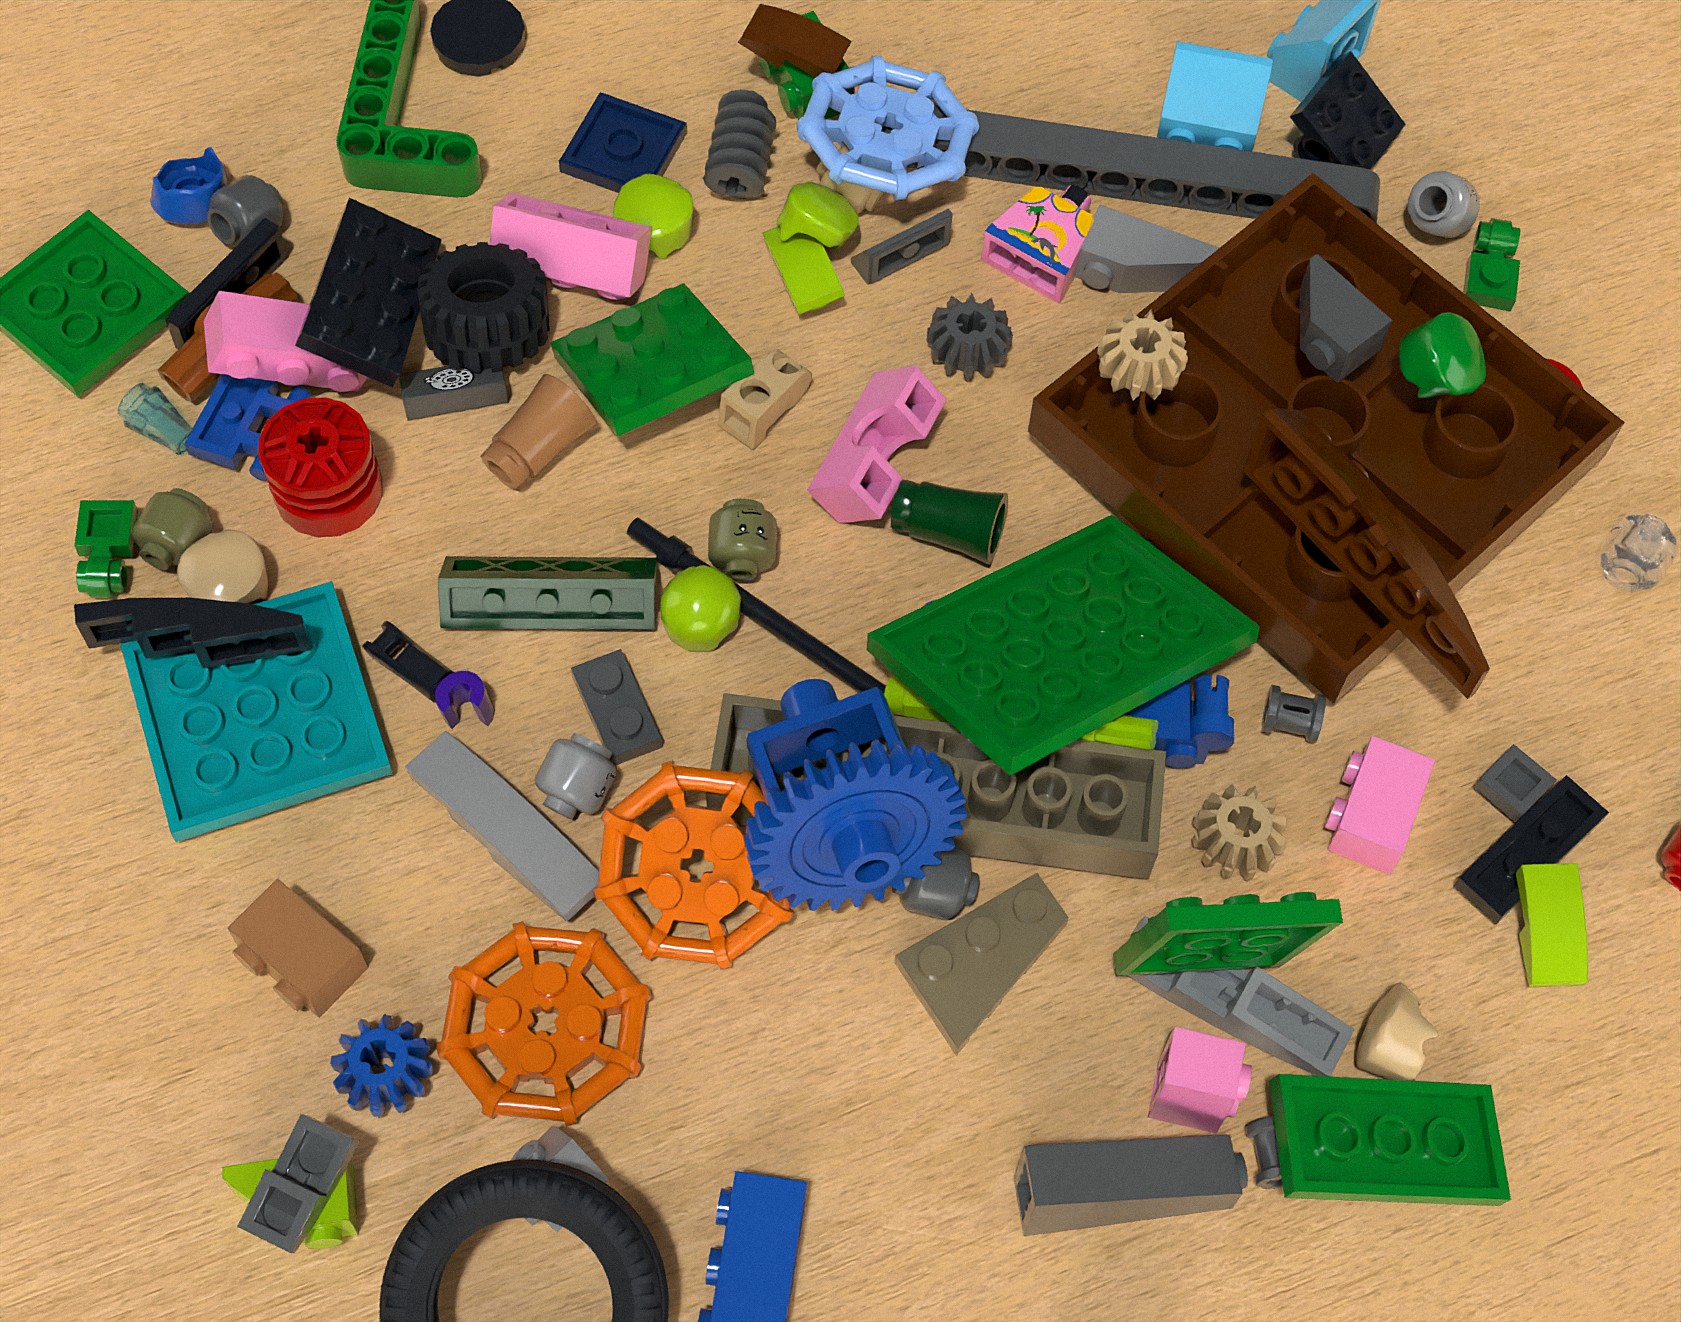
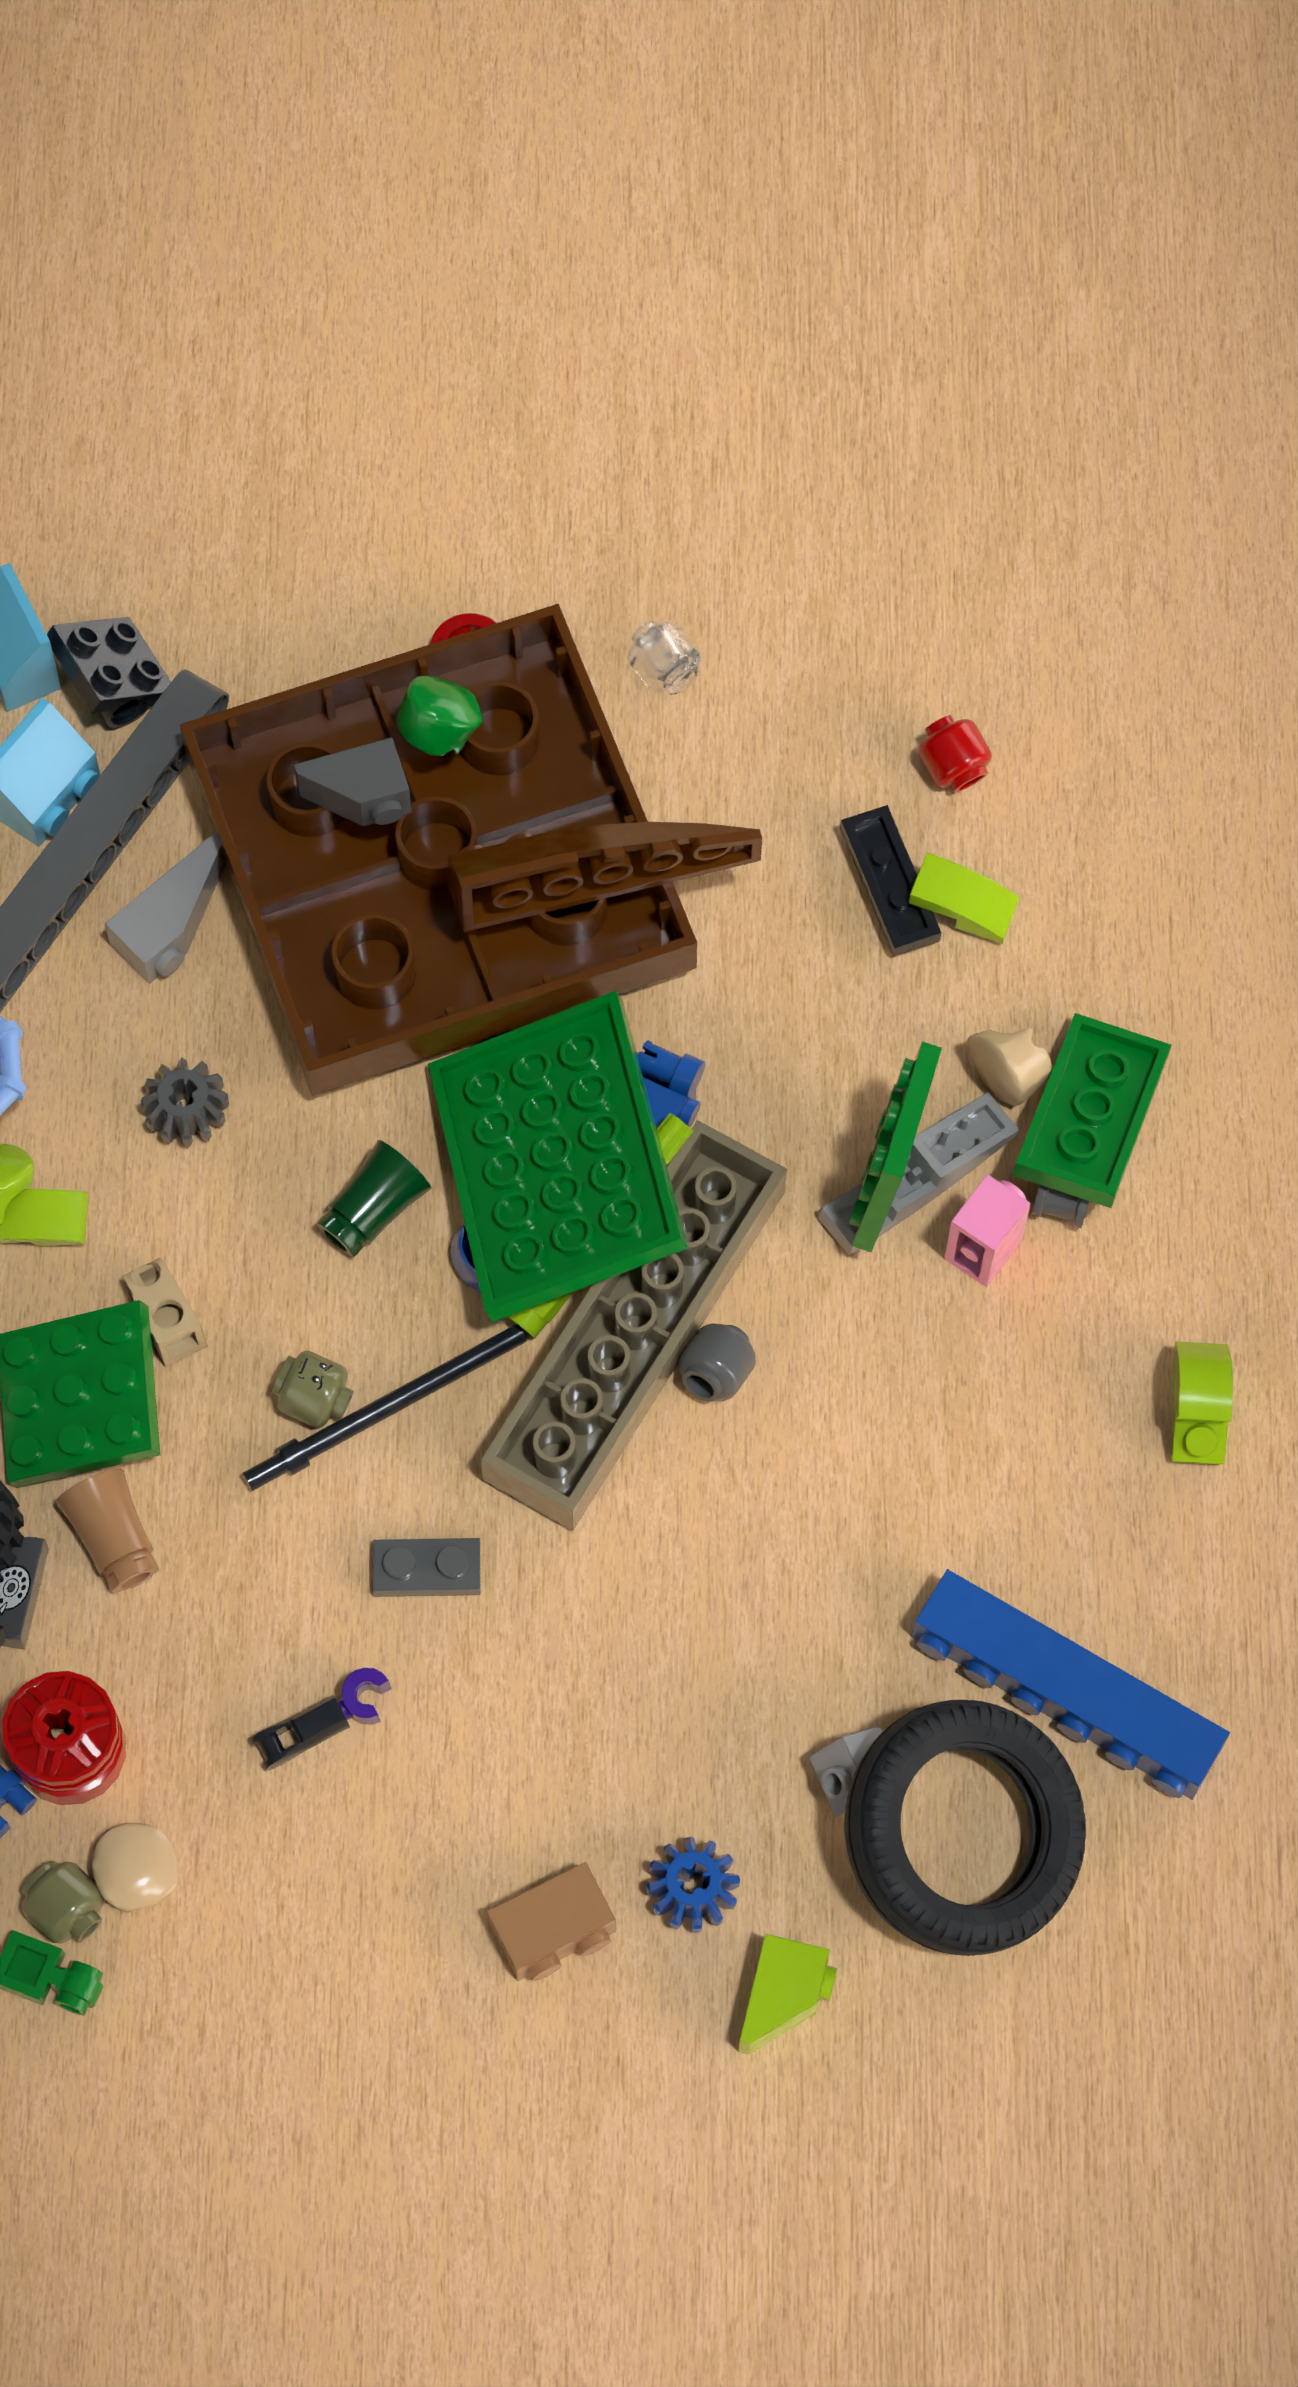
camera: 65 degrees left, 5 degrees up
(212, 628) = (205, 1891): black slope -> none
(261, 729) = (289, 1887): teal plate -> none
(299, 1185) = (786, 1976): dark grey slope -> none
(506, 825) = (509, 1701): light grey slope -> none
(539, 1056) = (689, 1764): orange plate -> none
(547, 592) = (289, 1582): fence -> none
(575, 776) = (488, 1624): light grey head -> none
(671, 885) = (657, 1545): orange plate -> none
(700, 608) = (364, 1454): lime hair -> none
(855, 475) = (239, 1206): bright pink arch -> none
(857, 819) = (686, 1390): blue piece -> none
(904, 248) = (46, 1119): dark grey slope -> none
(980, 957) = (797, 1357): dark tan wing -> none
(1040, 239) = (109, 989): bright pink torso -> none
(1125, 1181) = (1043, 1325): dark grey slope -> none
(1142, 355) = (299, 954): tan gear -> none
(1248, 852) = (779, 1083): tan gear -> none
(1293, 713) = (695, 989): dark grey bush -> none
(1380, 804) = (802, 977): bright pink brick -> none
(1443, 204) = (247, 645): light grey head -> none
(1489, 276) = (325, 630): green plate -> none
(1515, 783) = (828, 863): dark grey plate -> none

